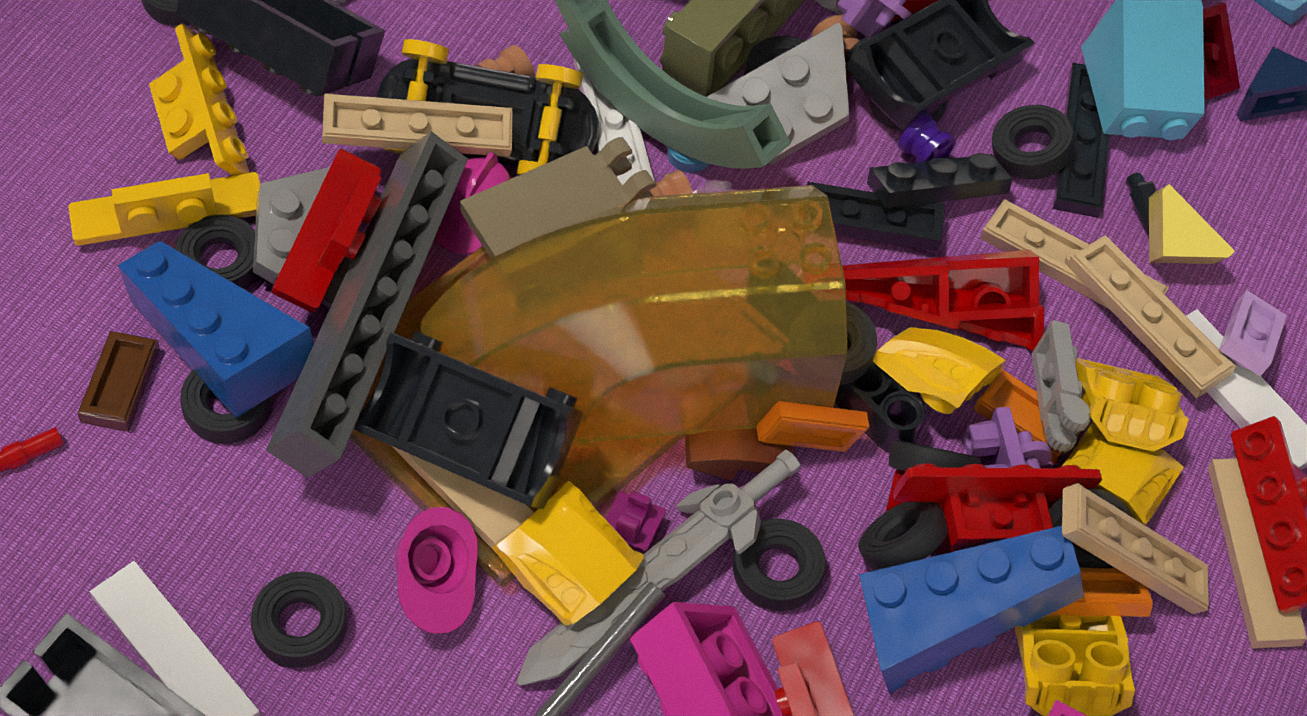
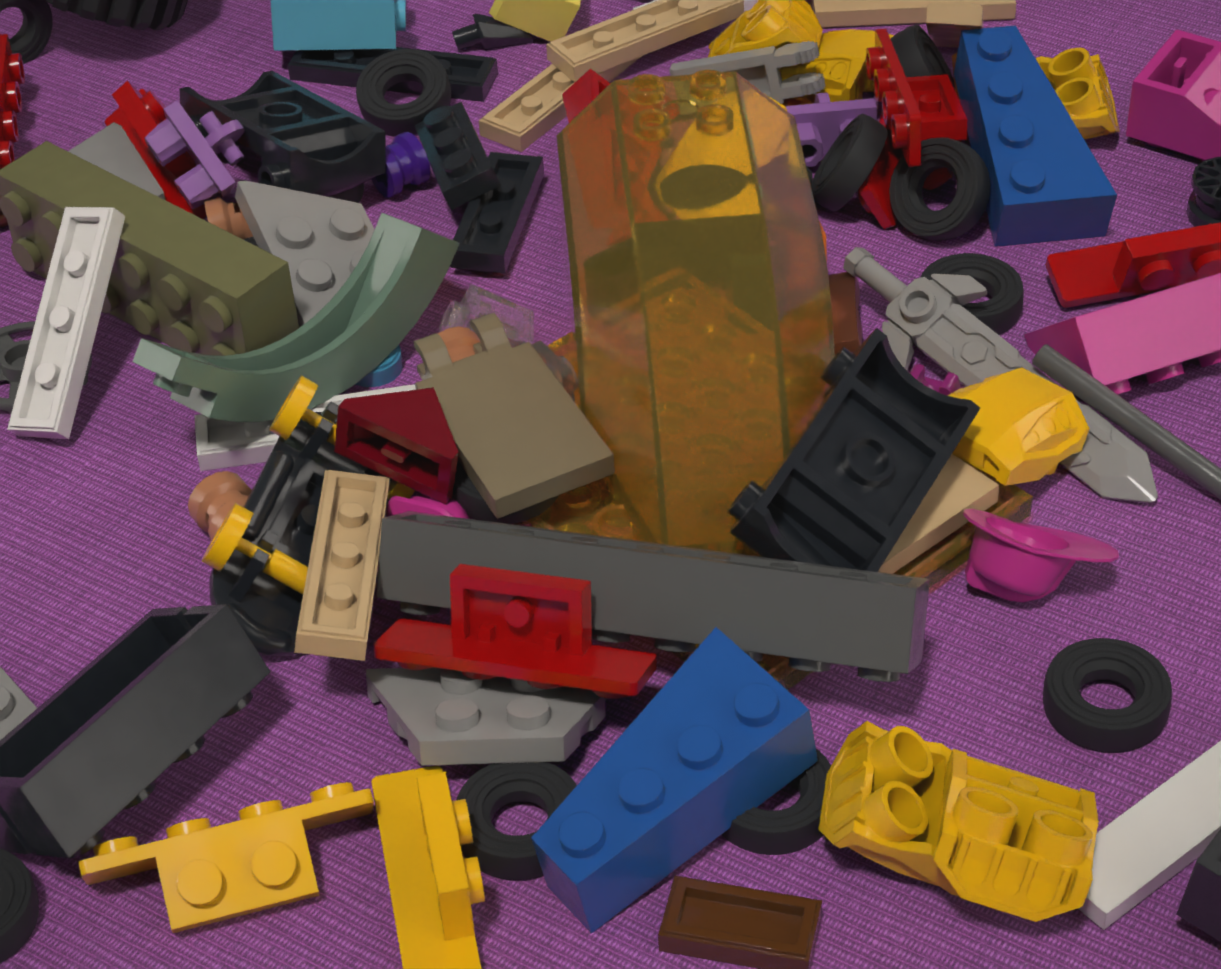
camera: 80 degrees left, 15 degrees down
(143, 523) = (1015, 839): none -> yellow slope
(183, 474) = (888, 800): none -> yellow slope
(525, 143) = (400, 438): none -> dark red slope

